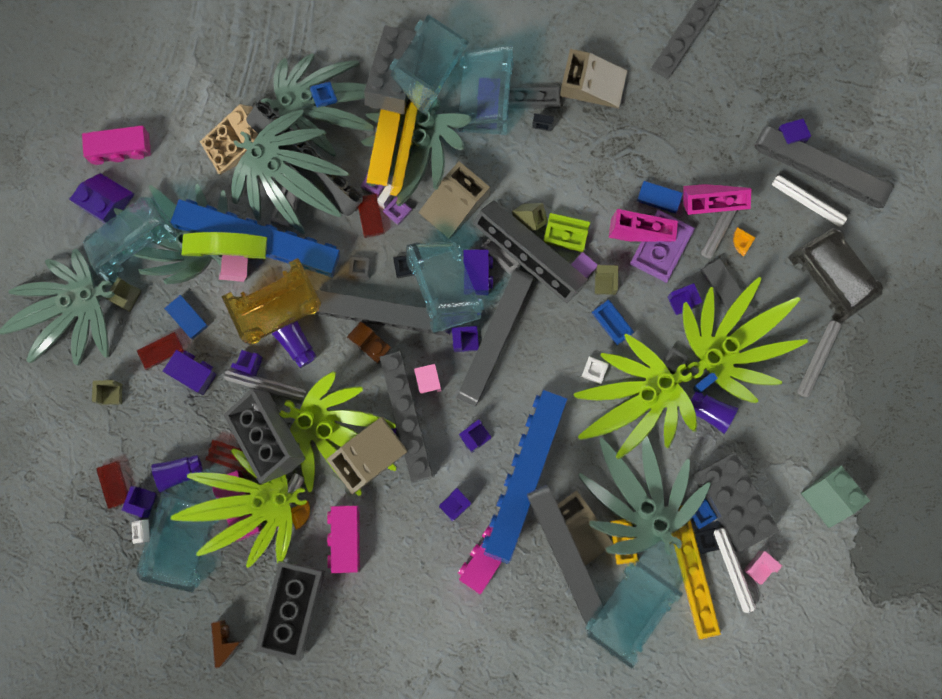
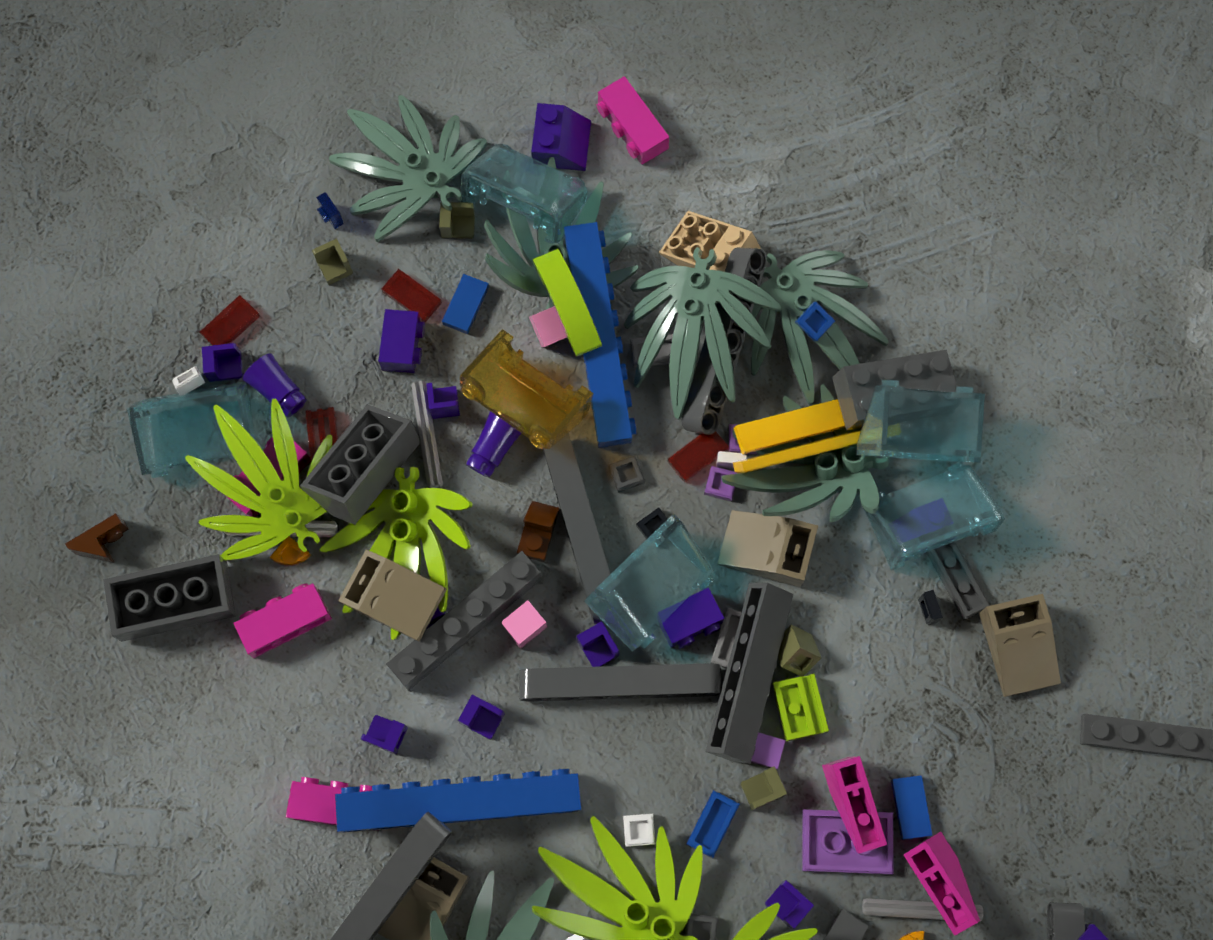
camera: 60 degrees right, 5 degrees down
(68, 379) = (328, 211): none -> clear blue plate

